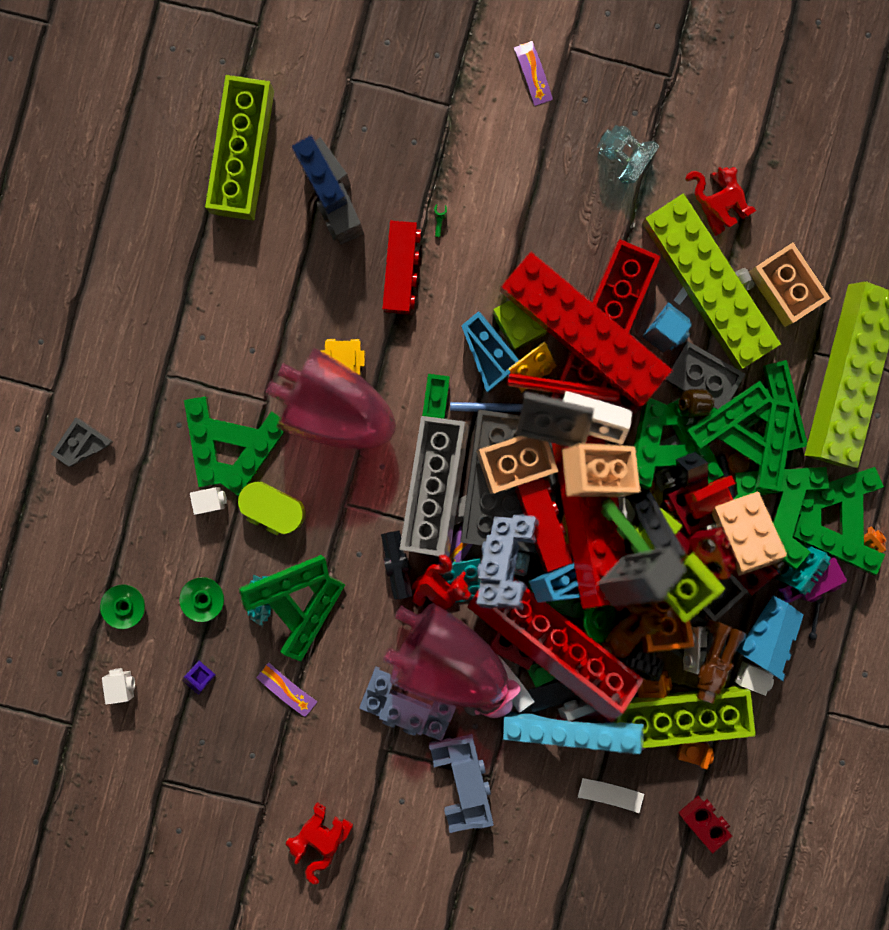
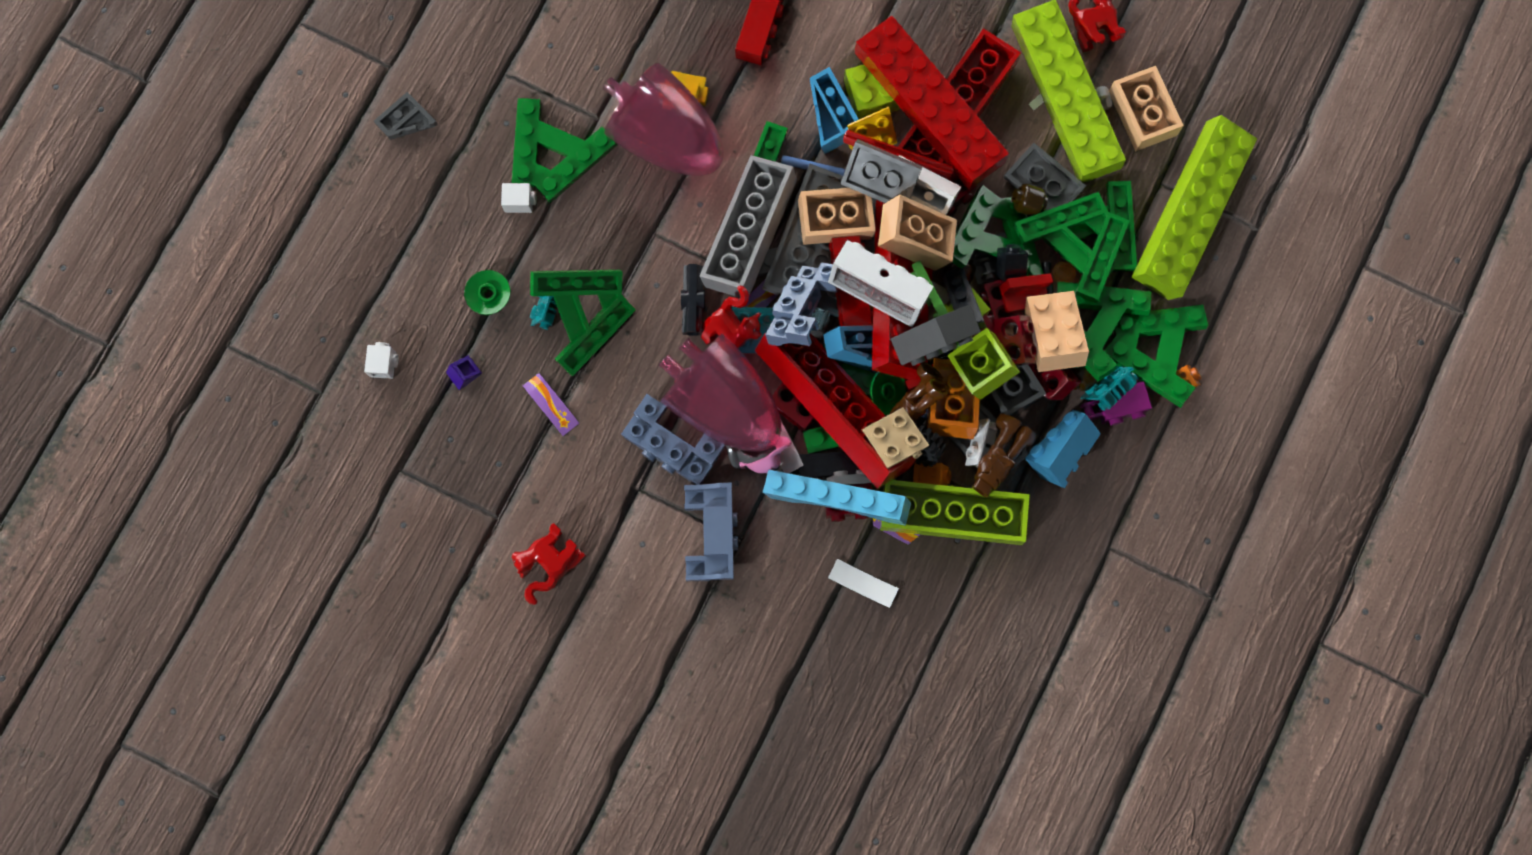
camera: 10 degrees right, 10 degrees down
(112, 608) = (401, 273): green dish -> none
(271, 508) = (579, 218): lime brick -> none
(578, 536) = (880, 283): none -> white brick
(620, 675) = (896, 438): none -> tan hinge
(668, 329) = (1014, 122): dark azure wedge -> none
(696, 753) = (961, 556): orange bracket -> none
(704, 824) = (952, 633): dark red brick -> none
(754, 678) = (1040, 491): white brick -> none
(812, 635) = (1122, 427): black hinge -> none

